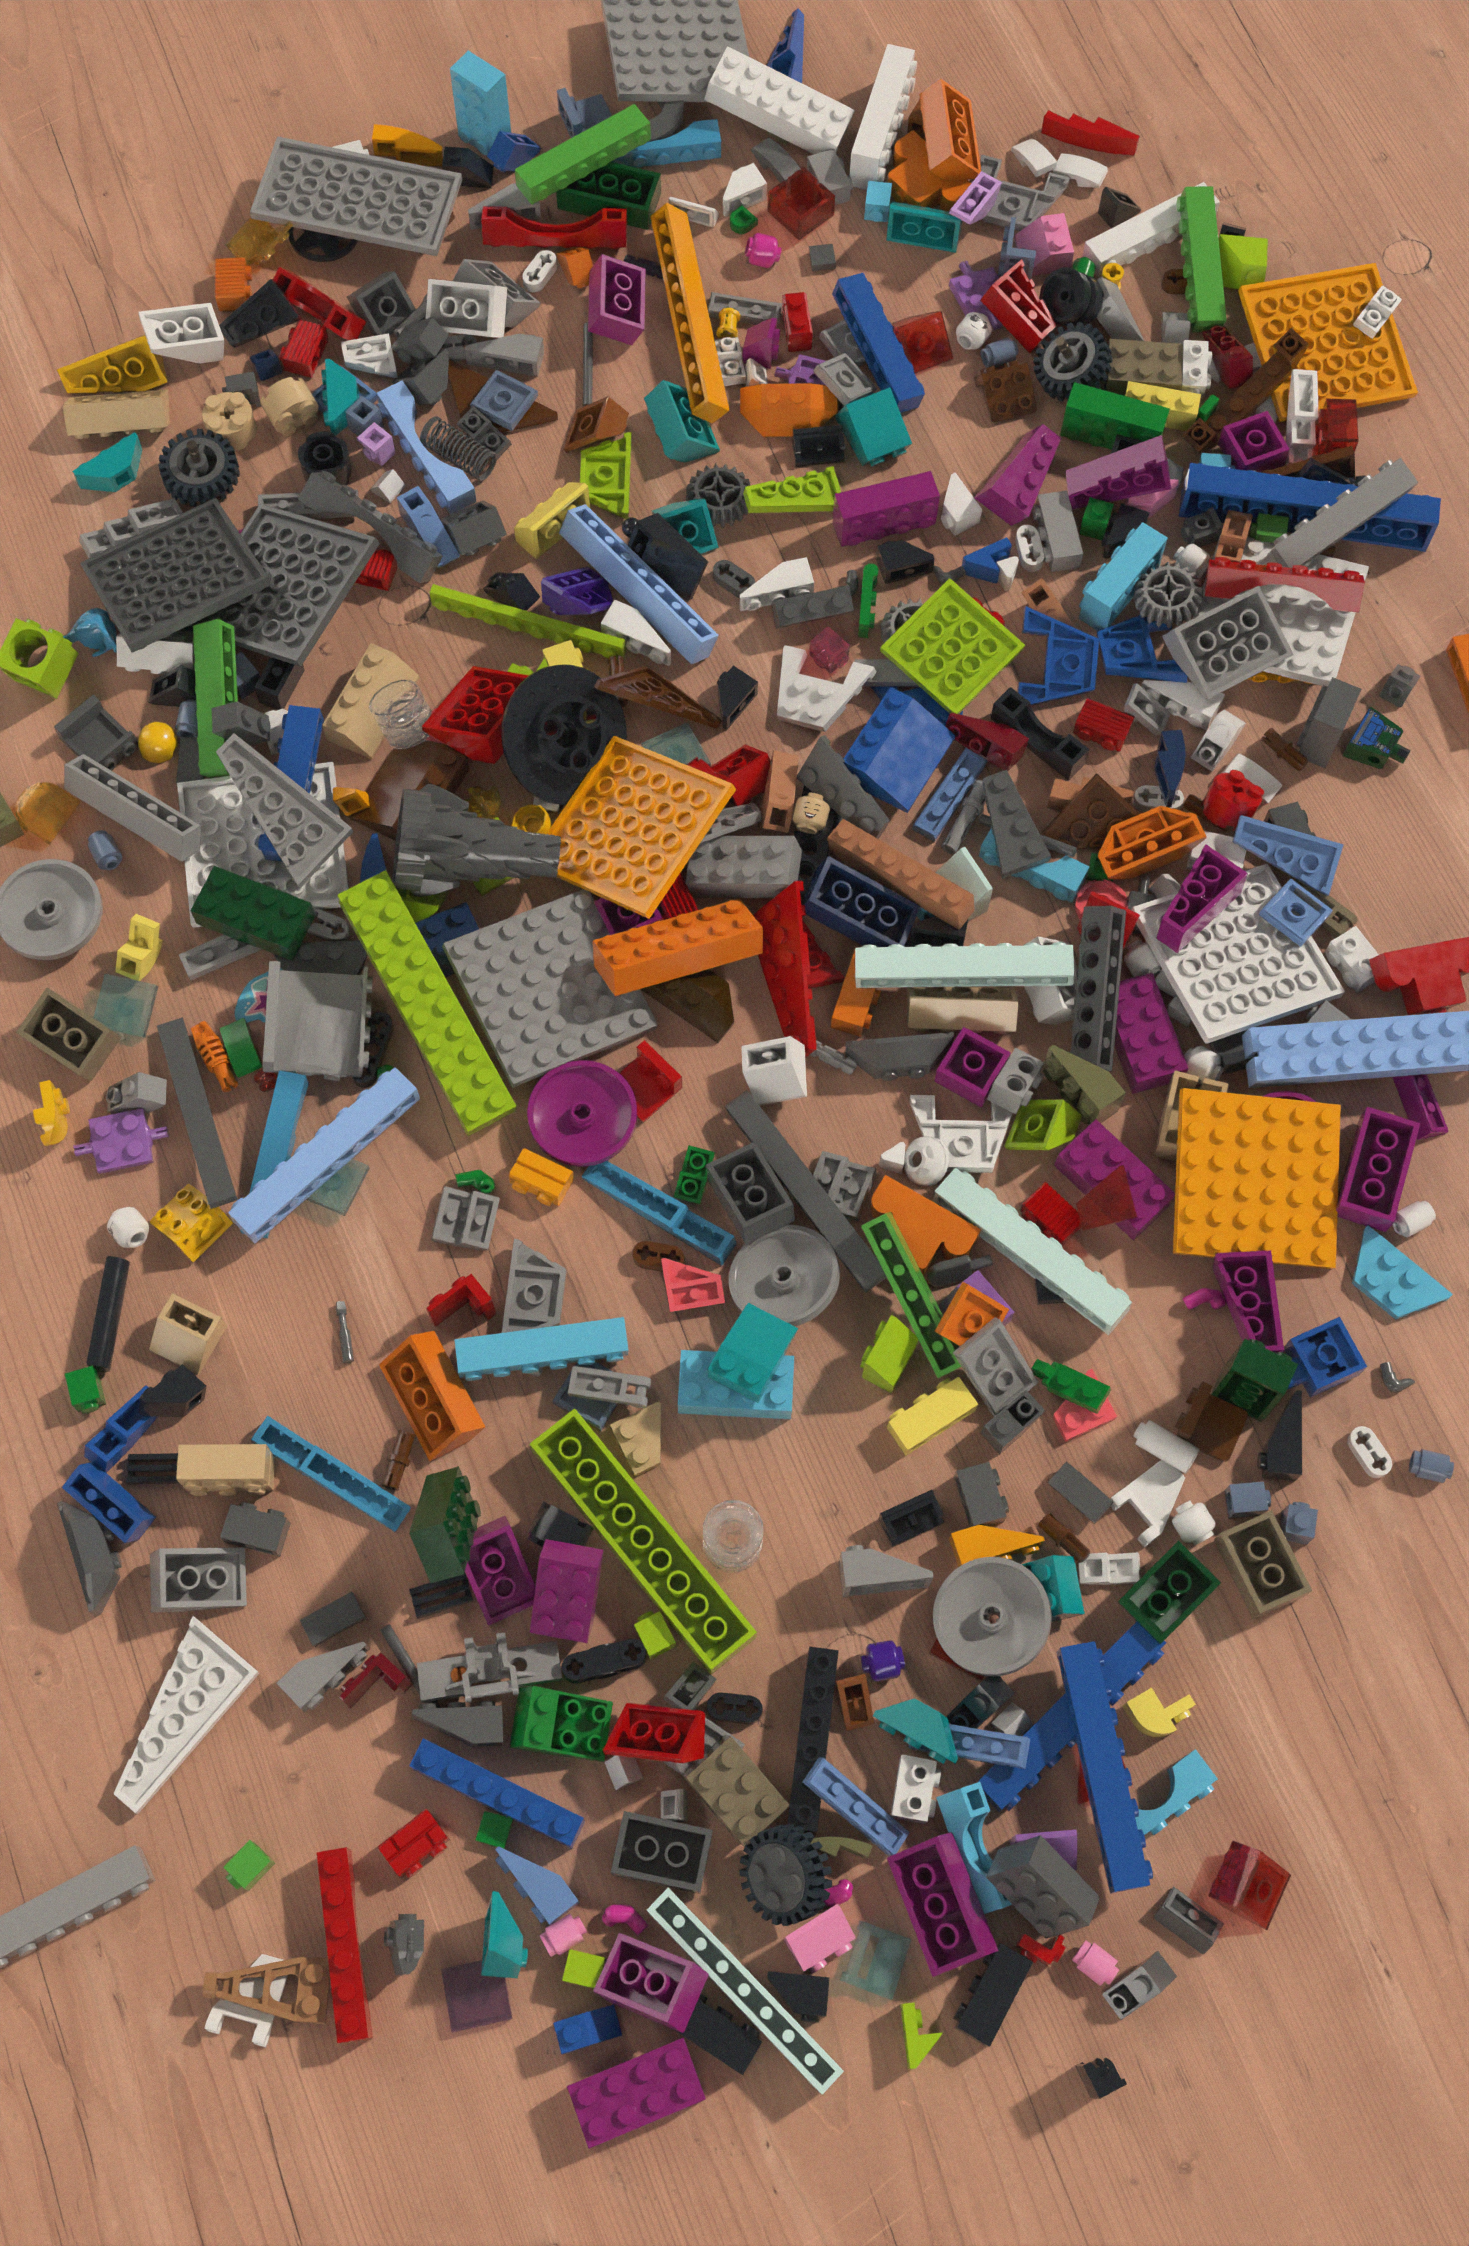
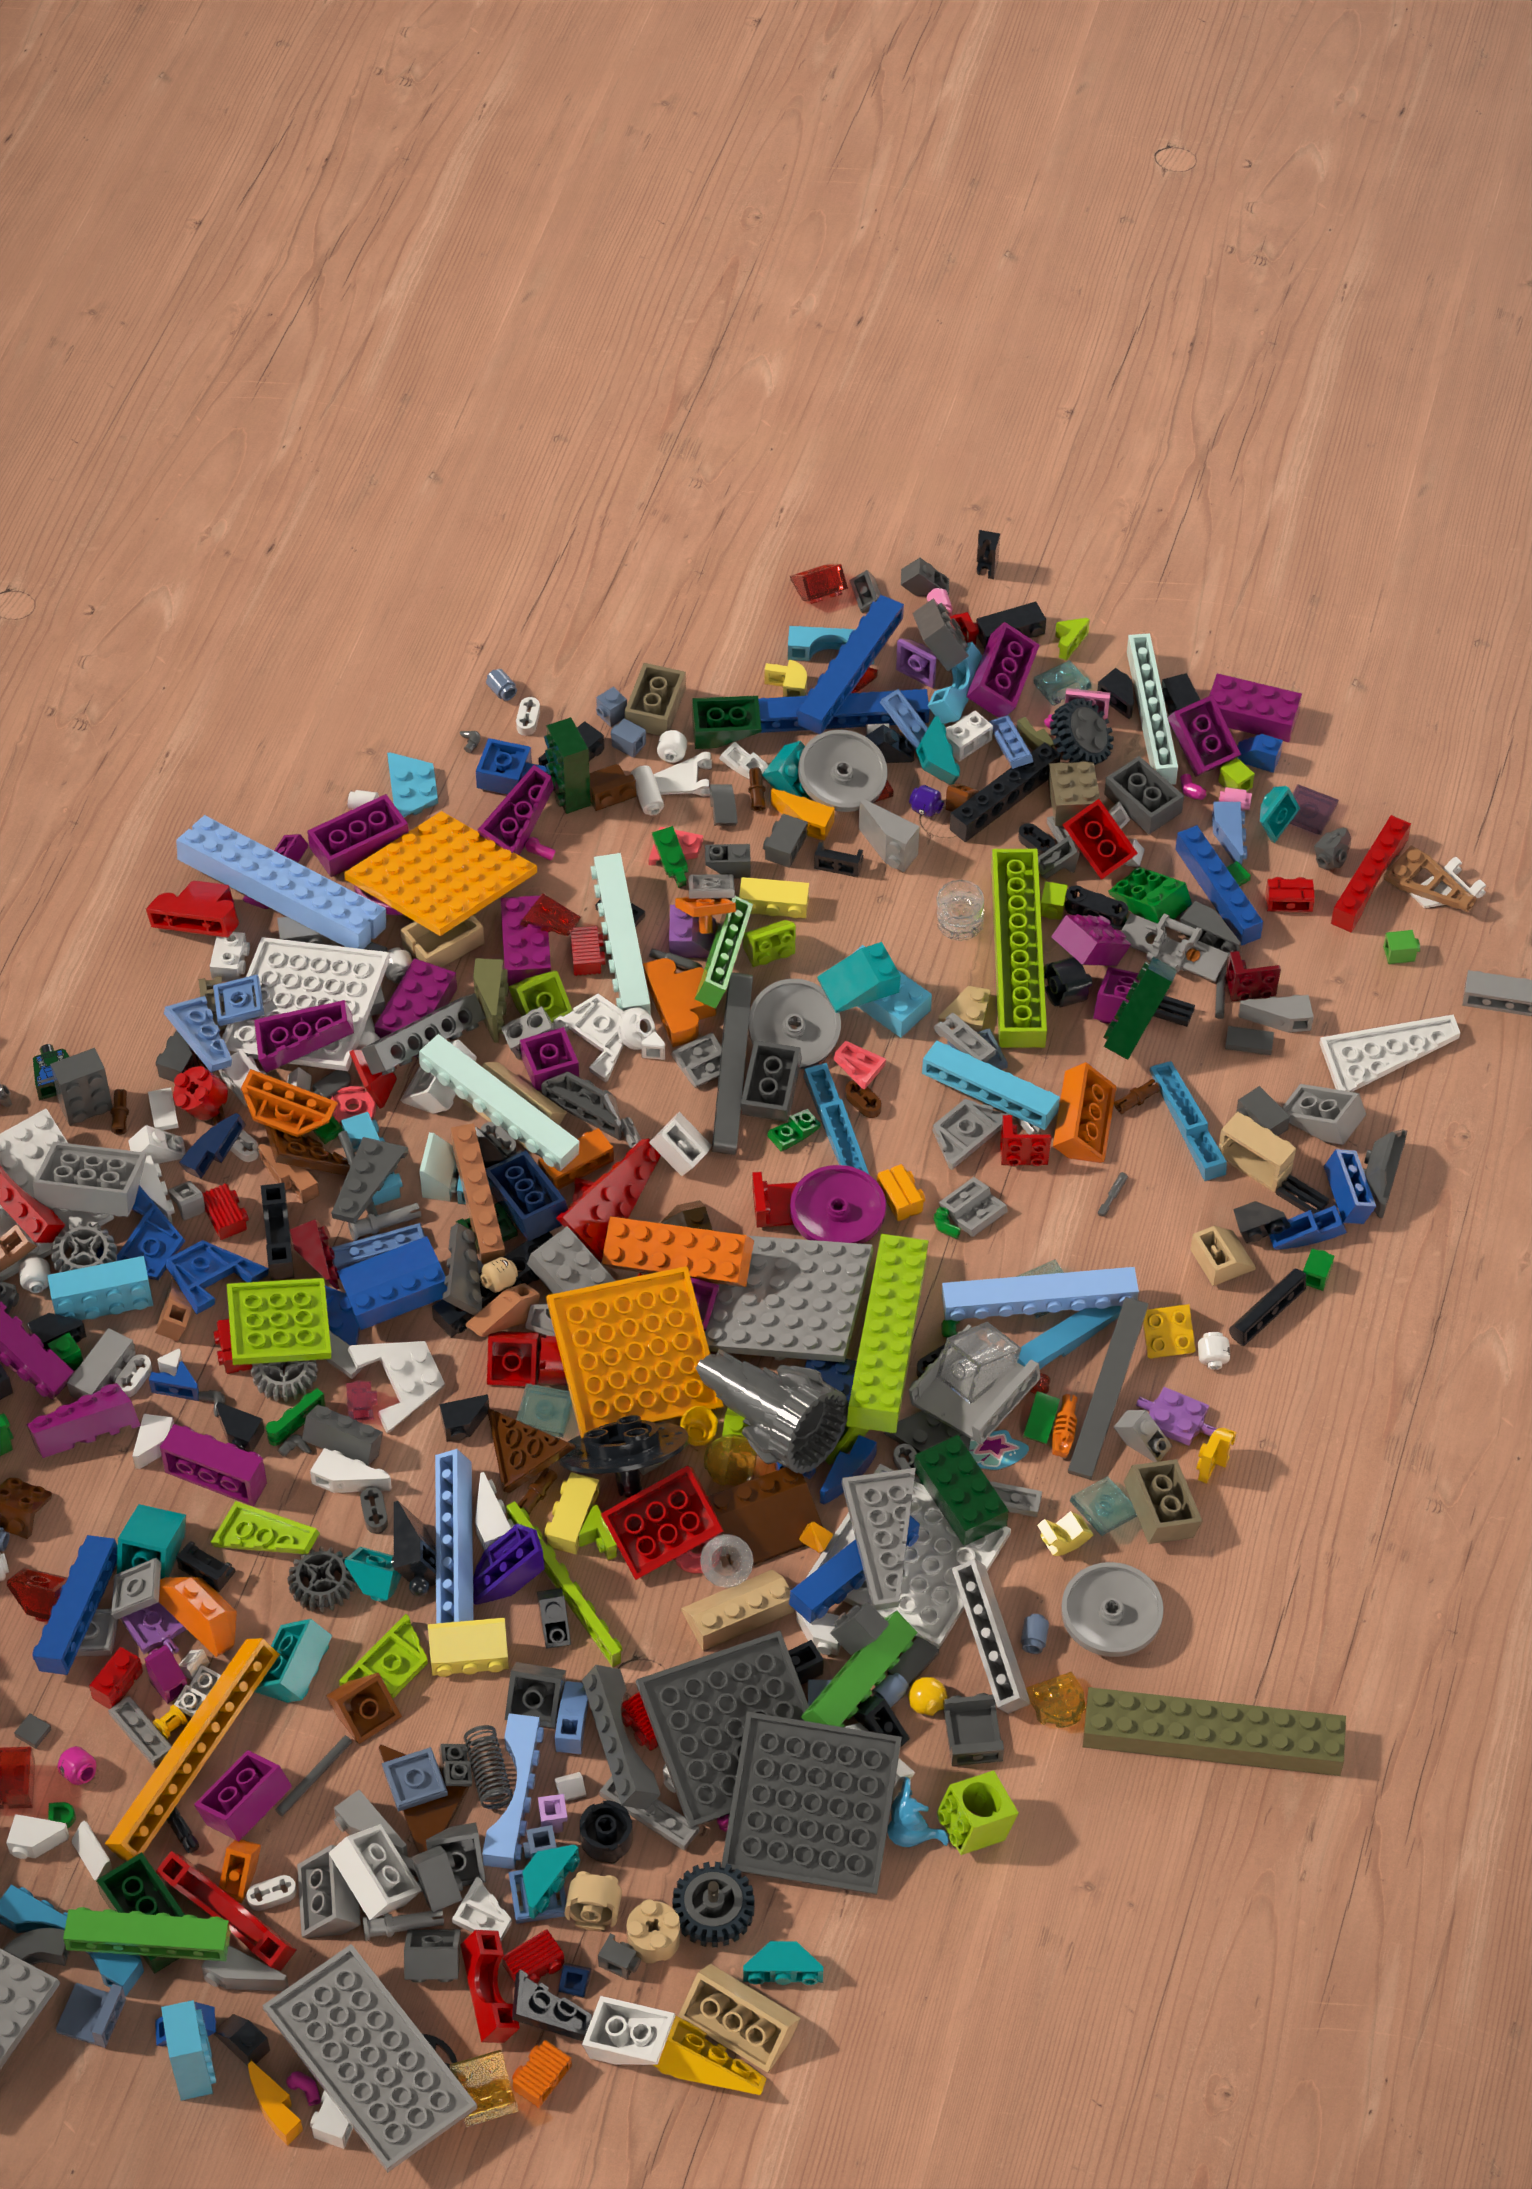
camera: 140 degrees left, 15 degrees down
(122, 529) = (808, 1897): light grey slope -> none

